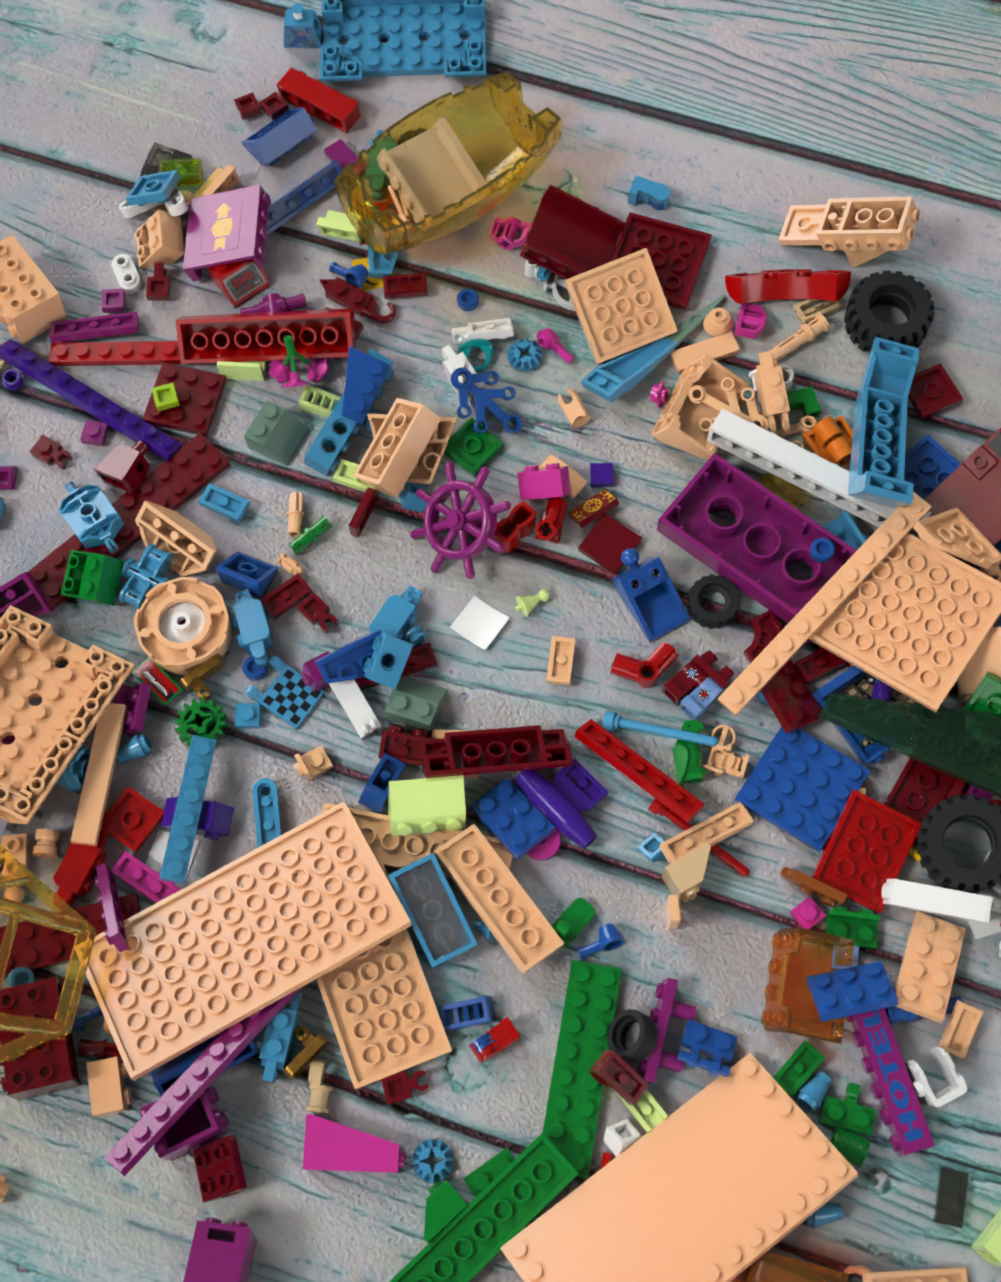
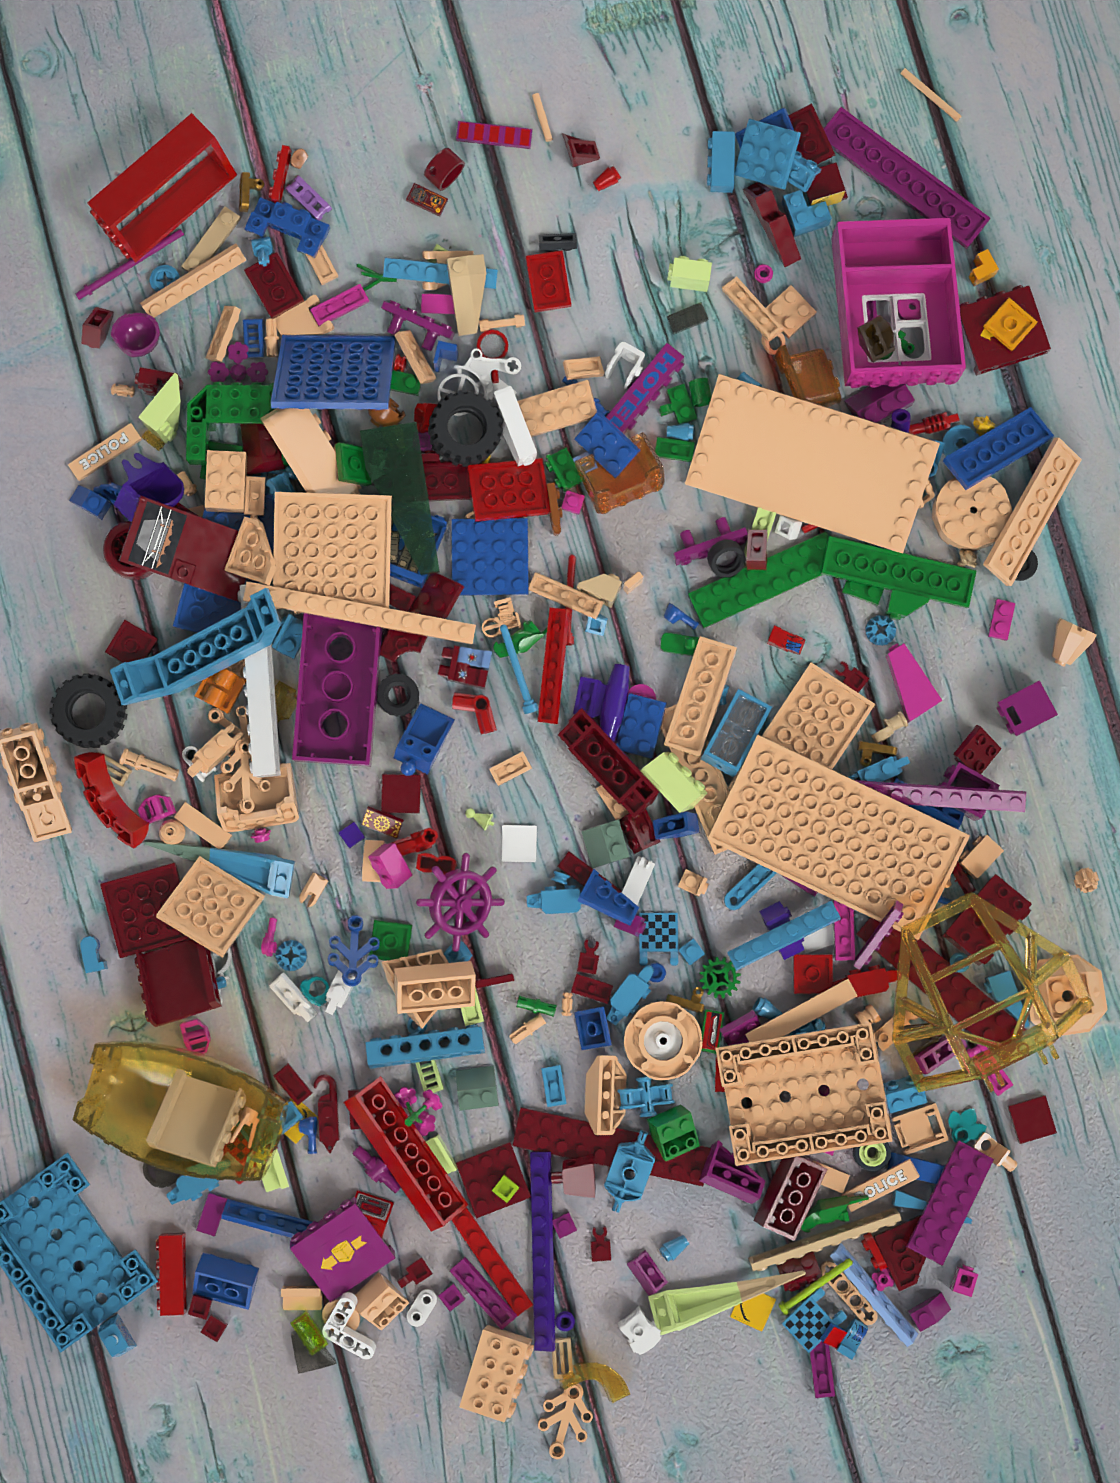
camera: 130 degrees left, 15 degrees up
(153, 188) = (342, 1336): dark azure plate -> none
(362, 384) = (401, 1048): blue wing -> none
(391, 673) = (603, 871): dark azure brick -> none
(467, 299) = (272, 1030): blue tile -> none
(488, 1009) = (777, 674): blue slope -> none
(709, 1042) = (696, 513): blue plate -> none
(805, 400) = (196, 729): green piece -> none
(822, 550) = (320, 639): blue tile -> none
(881, 691) = (396, 542): dark purple hose -> none

